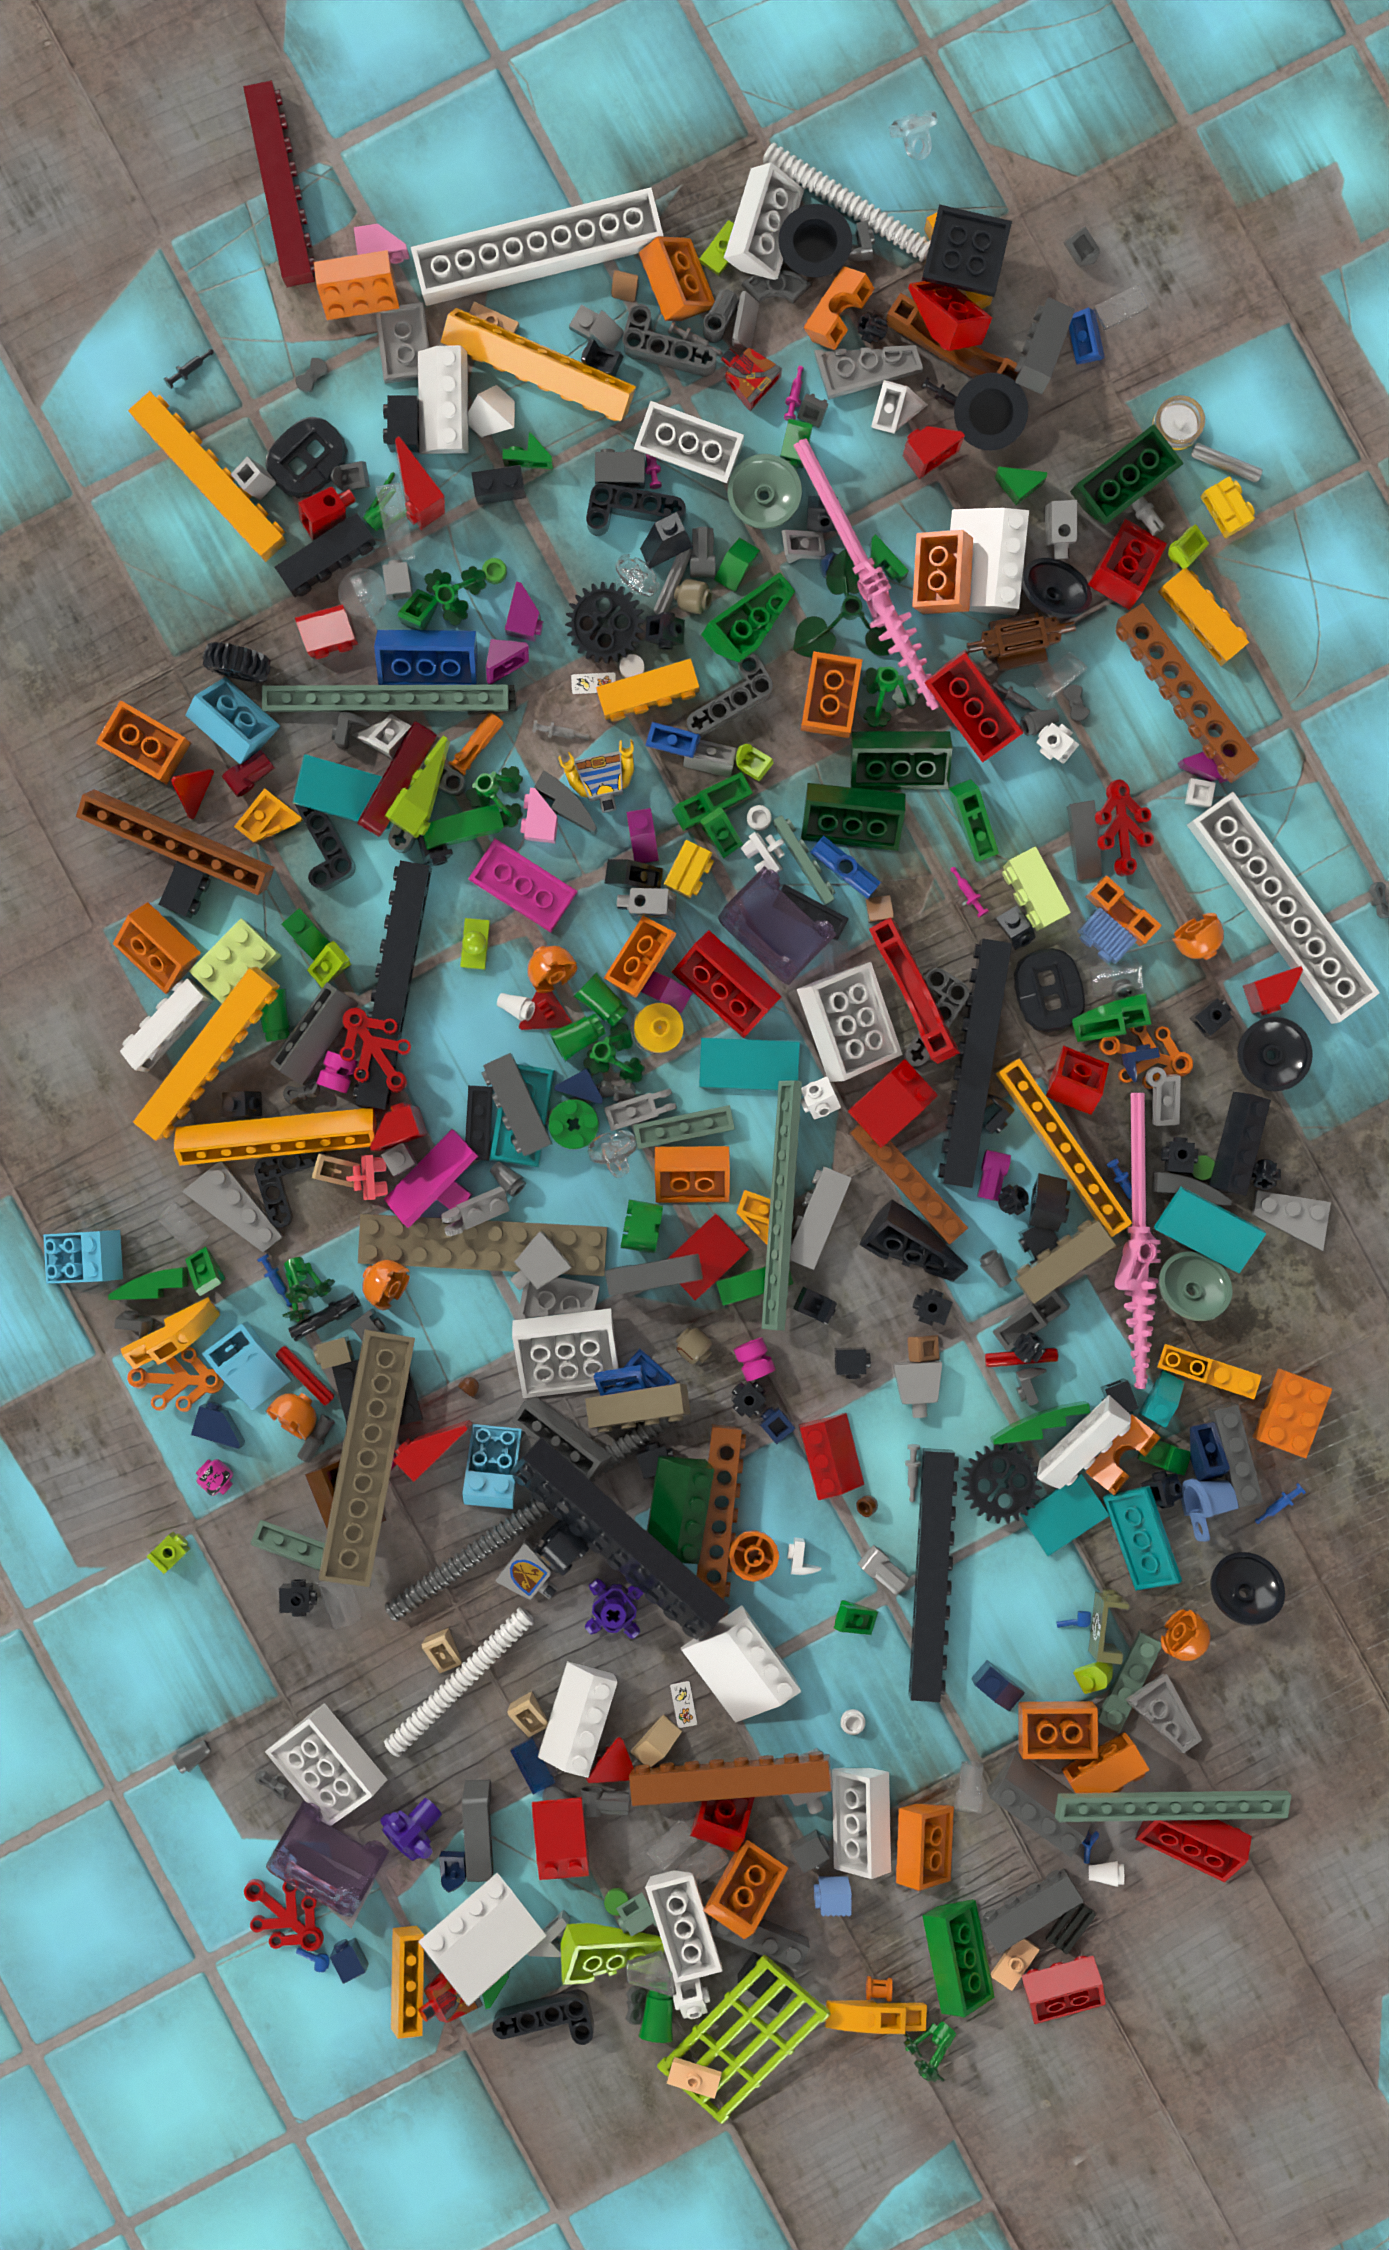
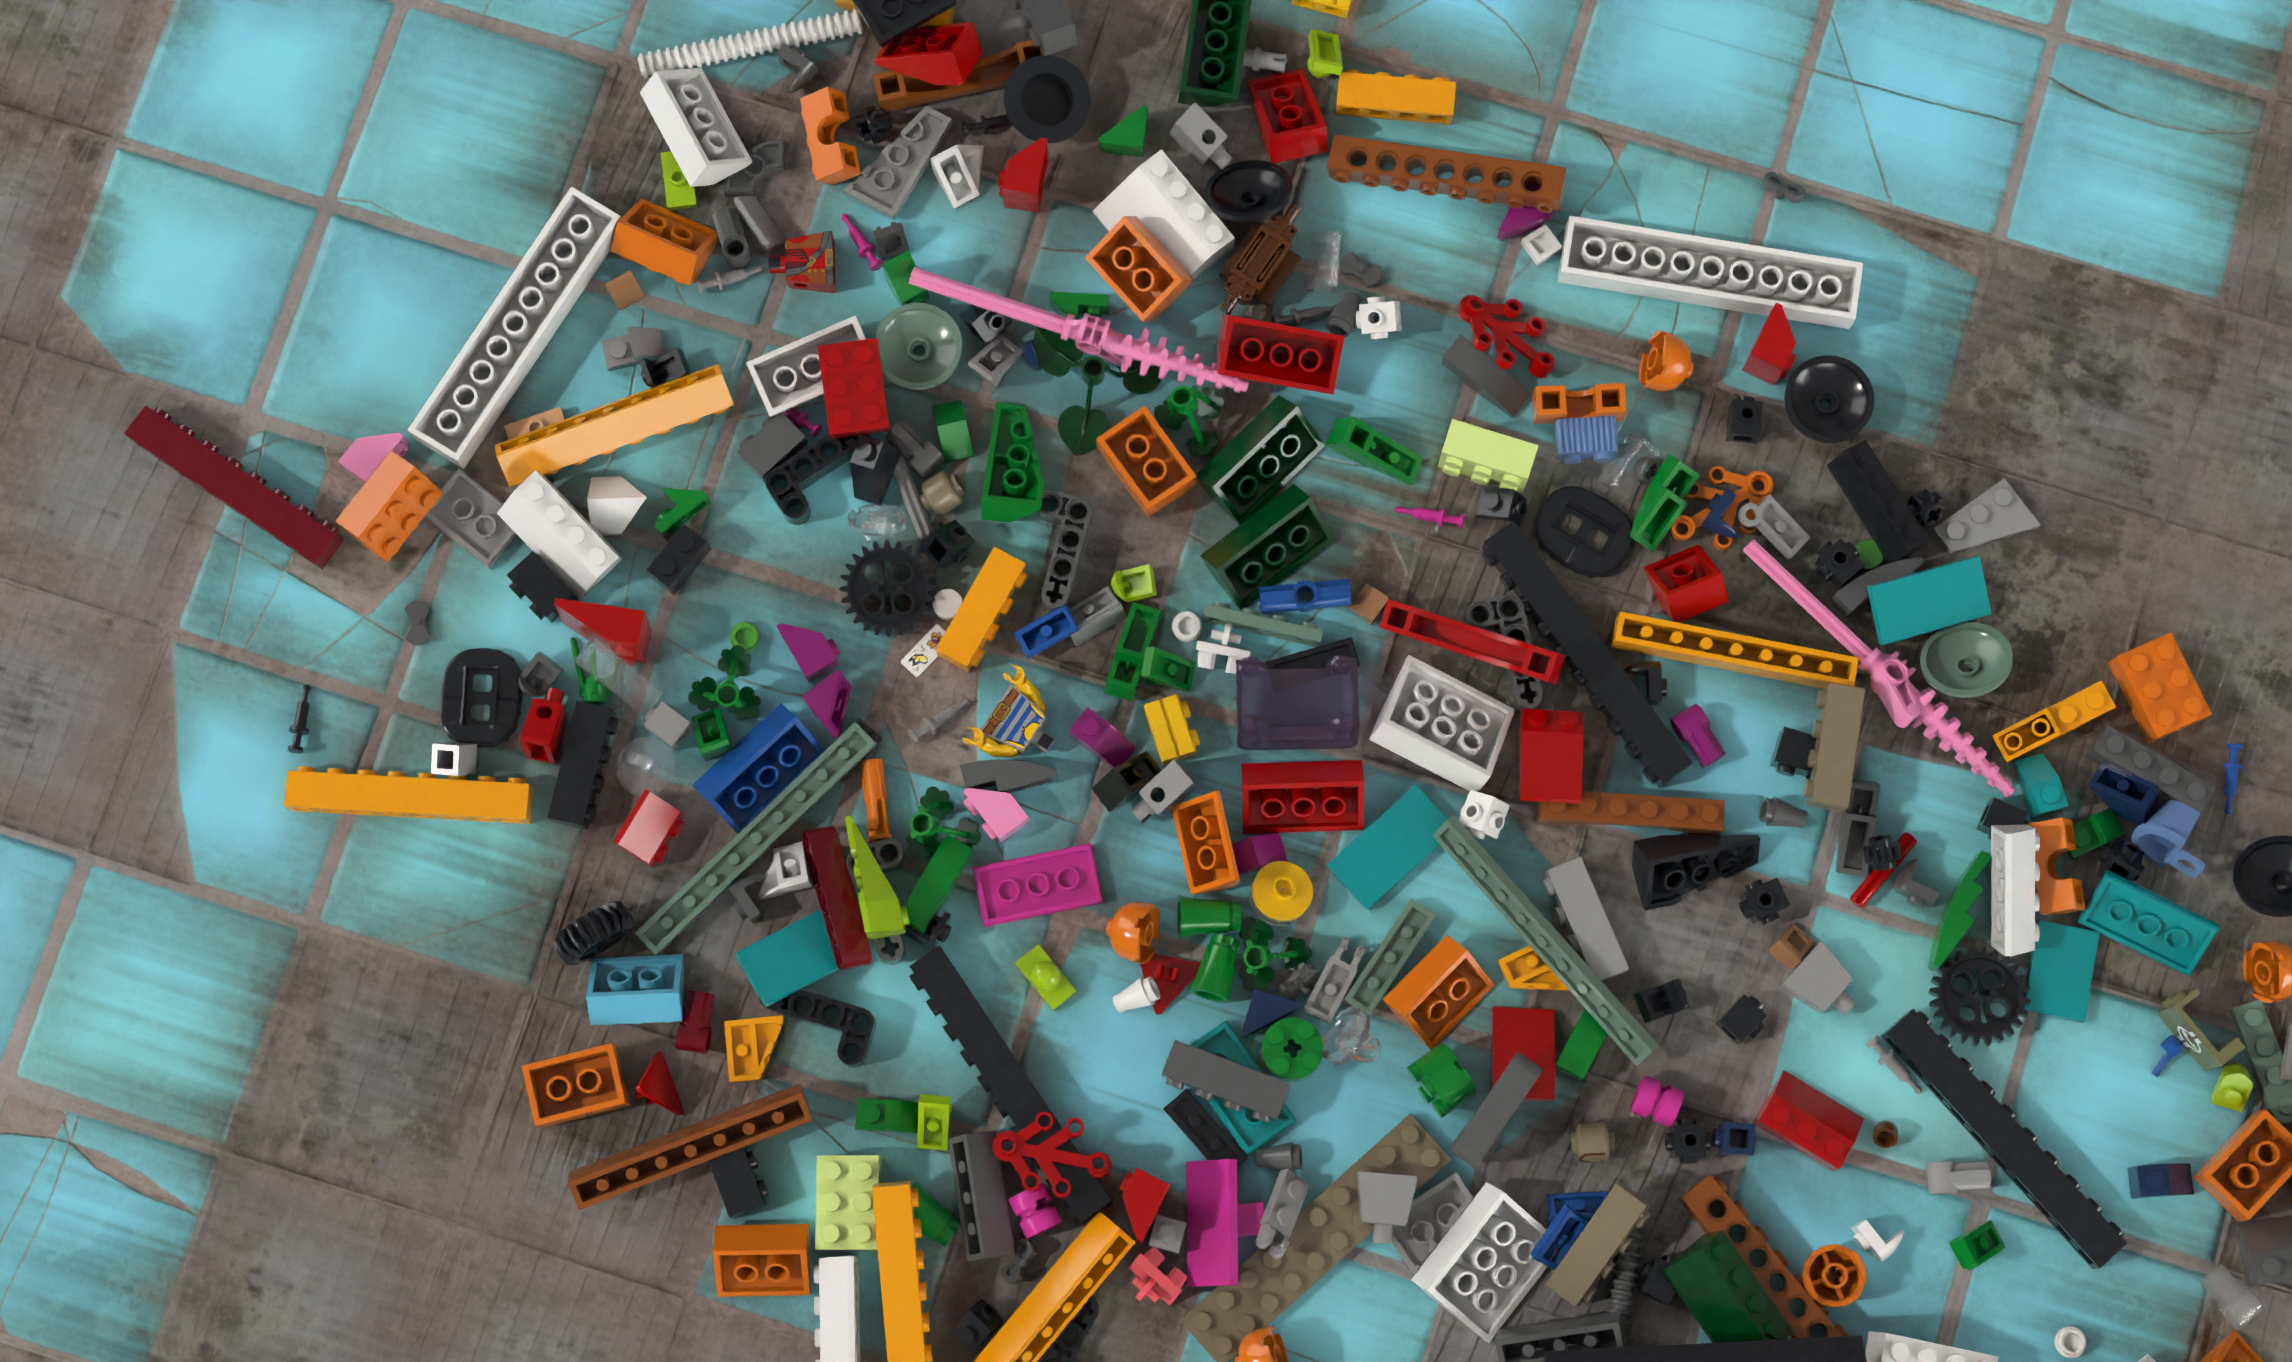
camera: 45 degrees left, 10 degrees down
(334, 1170) = (1119, 1302): tan slope -> none
(671, 346) = (712, 302): dark grey beam -> none
(698, 478) = (853, 388): none -> red brick
(815, 240) = (755, 99): black hose -> none
(1013, 1199) = (1737, 739): black gear -> none
(1049, 1202) = (1770, 710): black brick -> none
(1121, 1178) = (1809, 631): blue piece -> none

